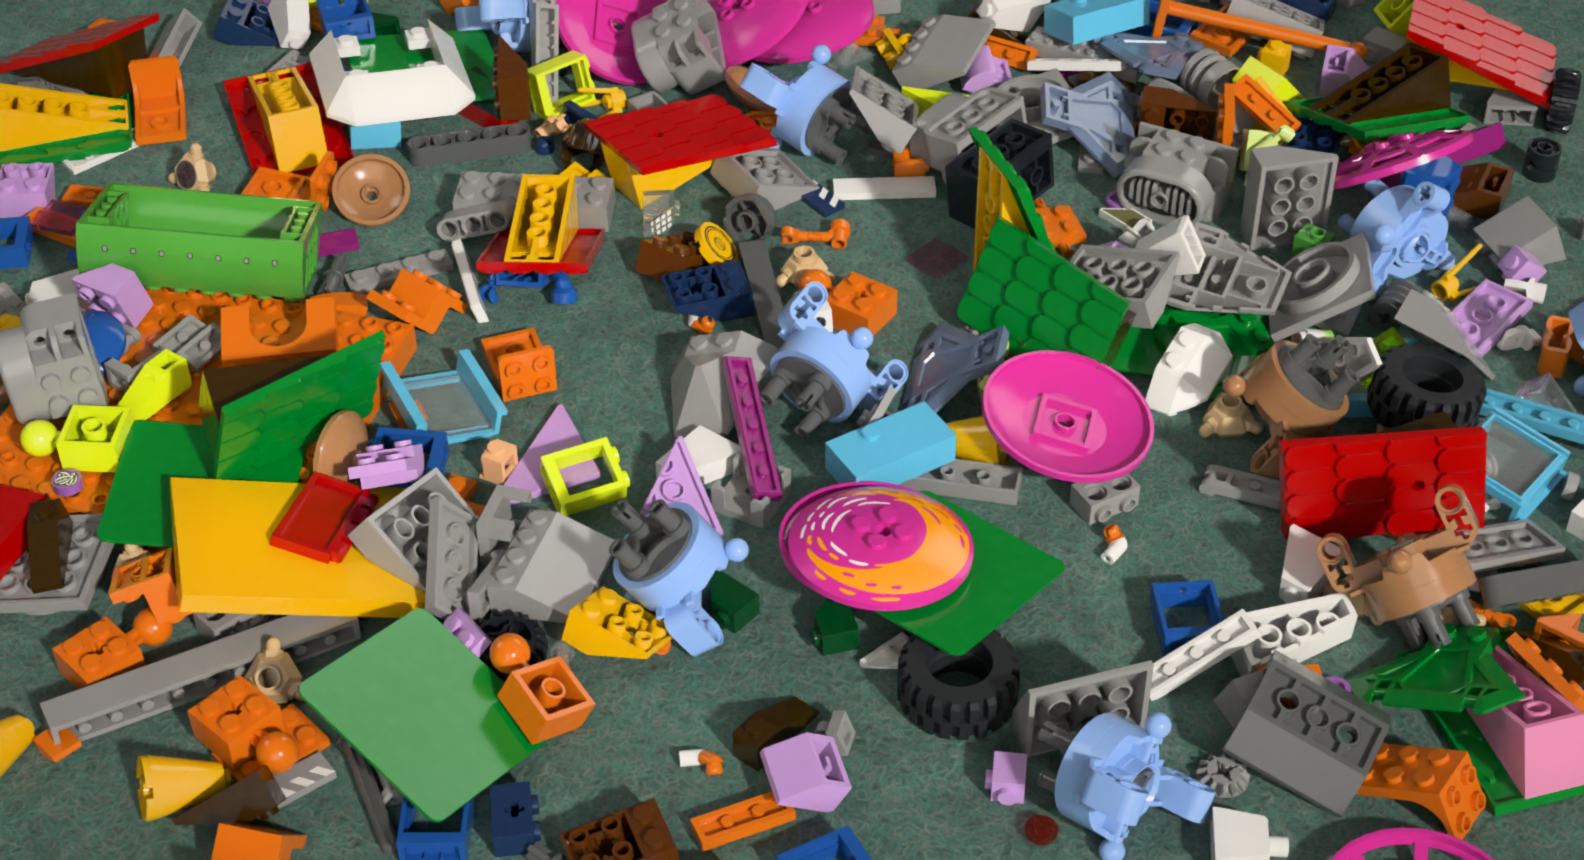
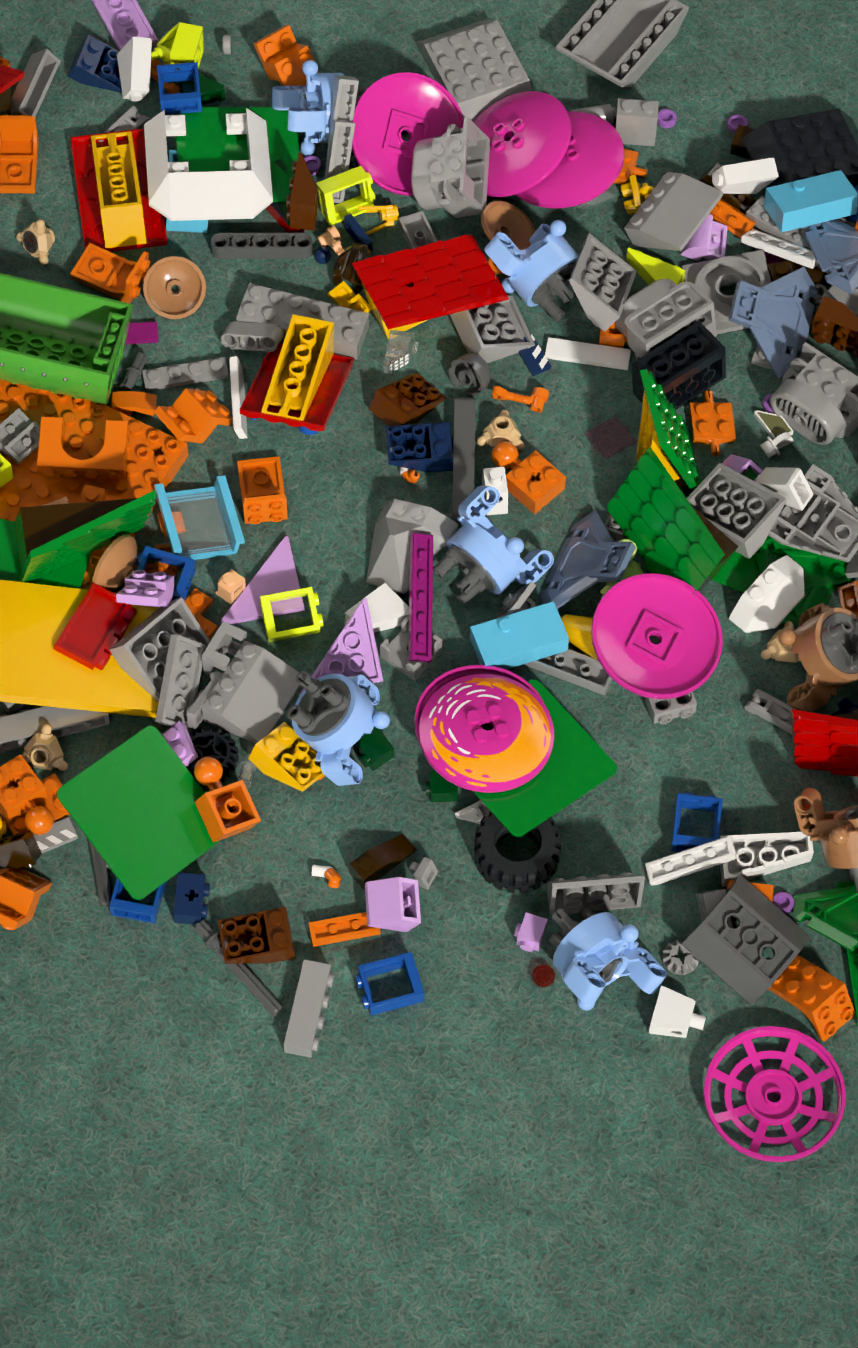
camera: 10 degrees right, 20 degrees up
(715, 244) = (436, 399): yellow tile -> none
(1116, 543) = (667, 746): white arm -> none
(1302, 570) = (797, 781): white slope -> none

